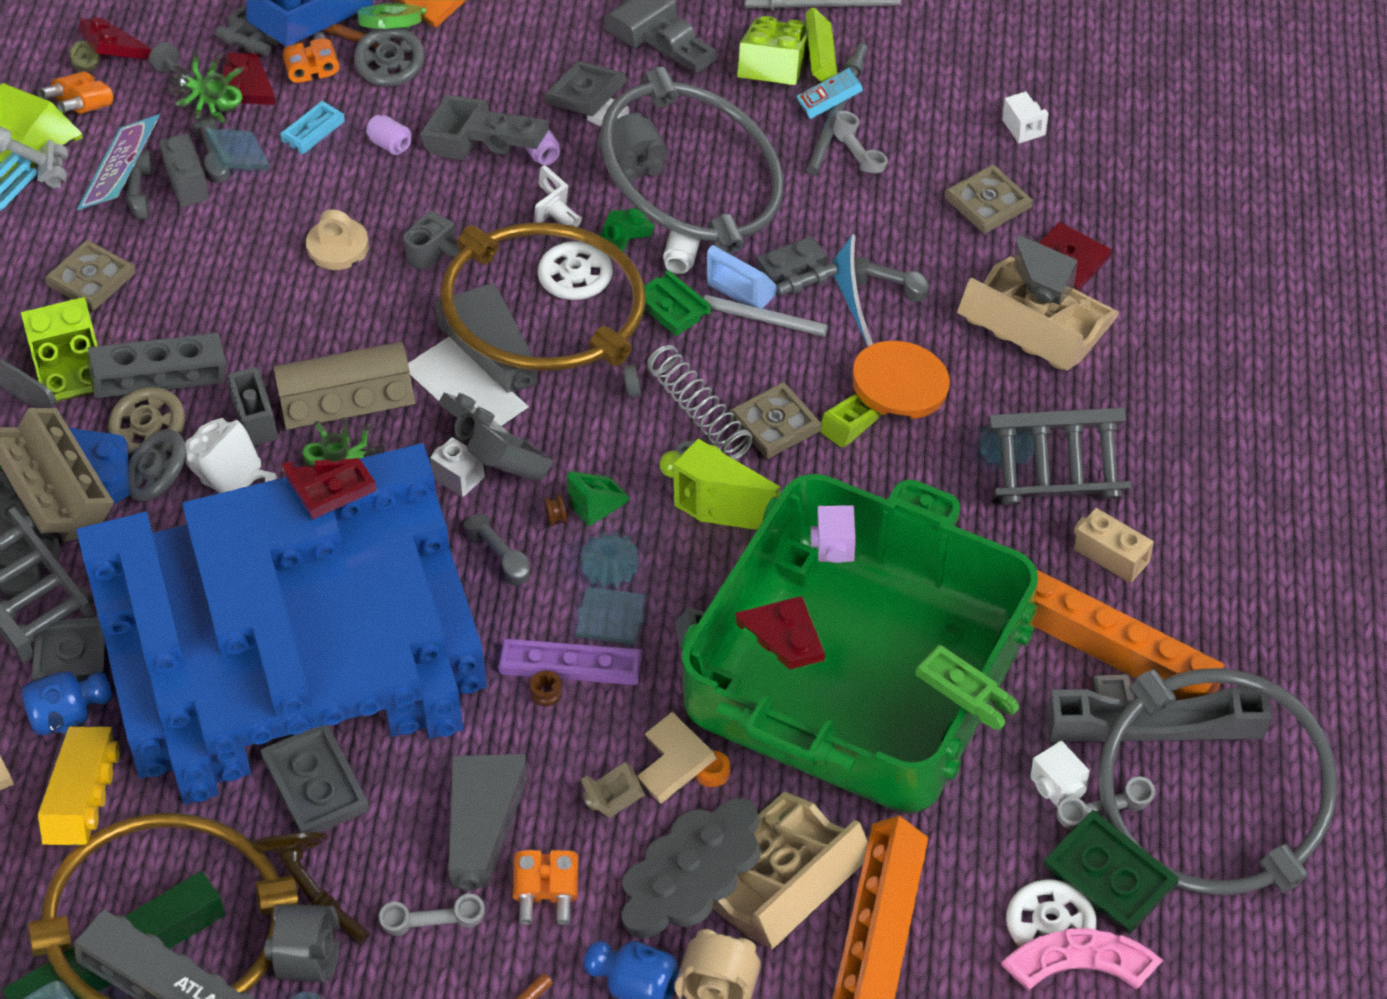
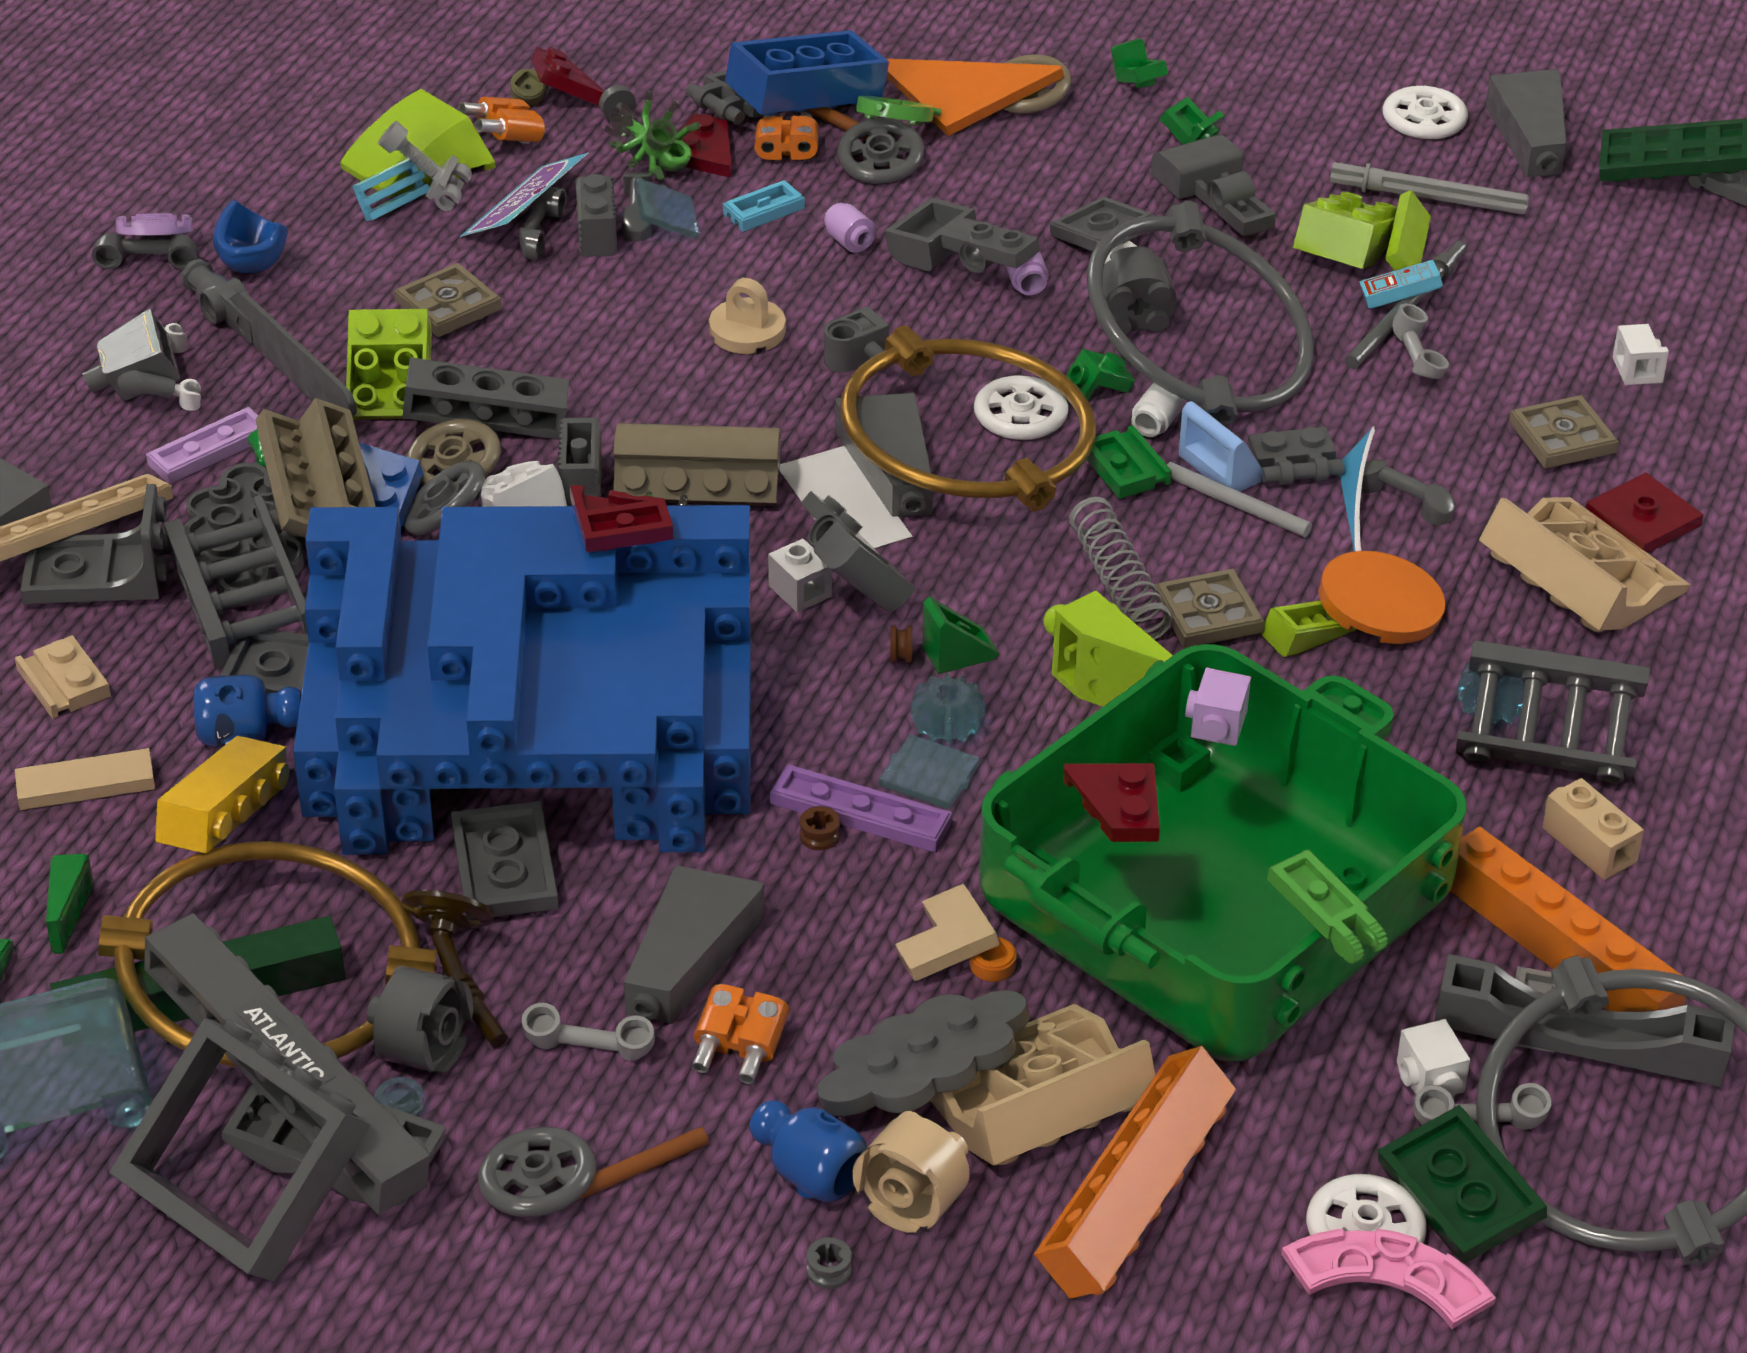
camera: 15 degrees right, 10 degrees down
(514, 563) = (830, 689): dark grey bar -> none
(555, 203) = (1023, 329): white bracket -> none
(612, 791) = (858, 952): dark tan bracket -> none
(631, 381) = (1045, 531): dark grey tile -> none
(1044, 270) = (1604, 509): dark grey slope -> none

